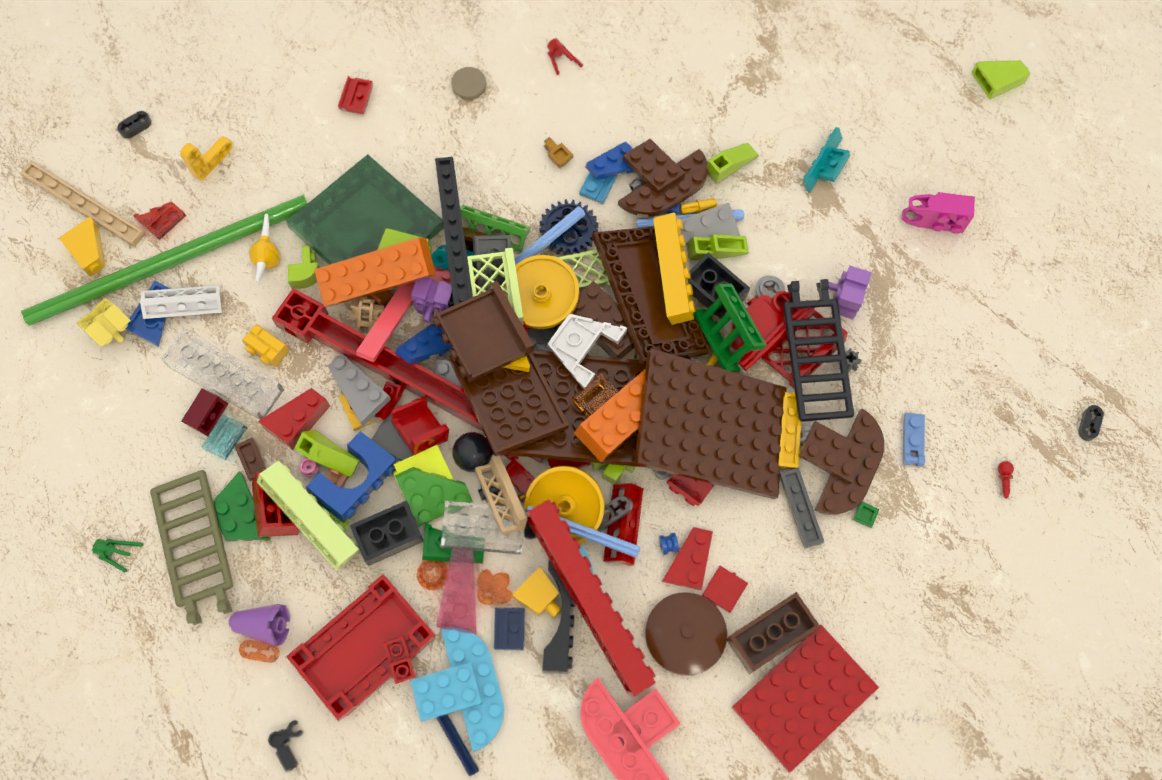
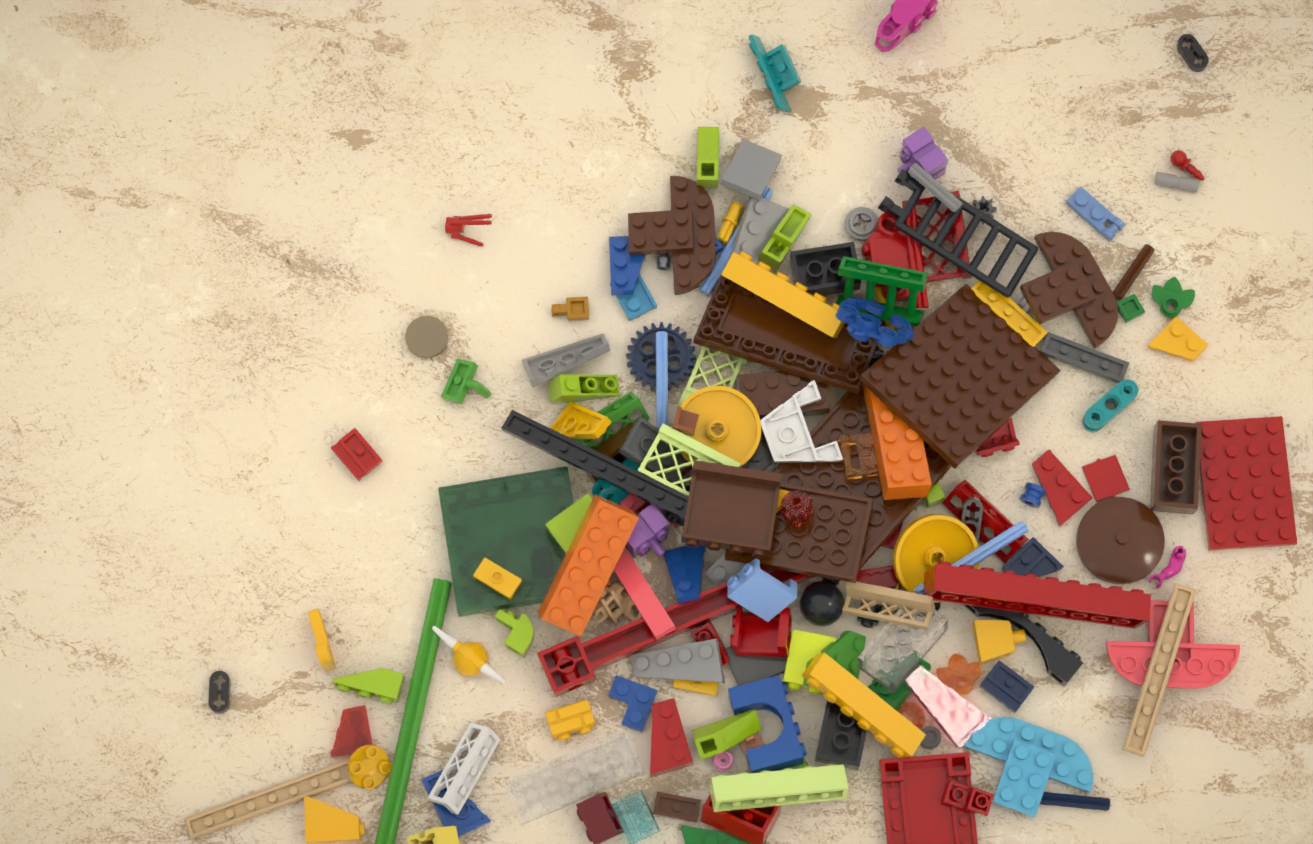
camera: 50 degrees left, 5 degrees up
(141, 242) = (369, 766): none -> yellow dish
(206, 212) = (378, 683): none -> lime slope
(314, 378) = (639, 699): none -> blue plate
(328, 228) = (497, 578): none -> yellow plate
(410, 529) = (863, 705): none -> yellow brick
(430, 600) = (932, 737): none -> dark grey tile
(442, 399) = (760, 591): none -> light blue panel
(453, 120) = (461, 380): none -> bright green plate
(477, 206) = (580, 422): none -> yellow wing
(508, 195) = (582, 388): none -> lime slope
(509, 164) = (560, 360): none -> light grey wing
(519, 376) = (797, 507): none -> clear red brick
(527, 263) = (685, 422): none -> dark orange panel
(604, 734) = (1159, 670): none -> tan tile
(618, 579) = (1033, 560): none -> dark blue wing
(688, 325) = (864, 326): none -> blue piece
(698, 689) = (1175, 564): none -> dark pink arm
(745, 191) = (751, 169): none -> light grey tile
(791, 549) = (1118, 398): none -> teal piece
(834, 310) = (934, 187): none -> light grey axle
(872, 567) = (1179, 340): none -> yellow wing
(894, 497) = (1133, 271): none -> reddish brown axle
(901, 537) = (1172, 295): none -> green plate
(986, 477) = (1179, 182): none -> light grey piece

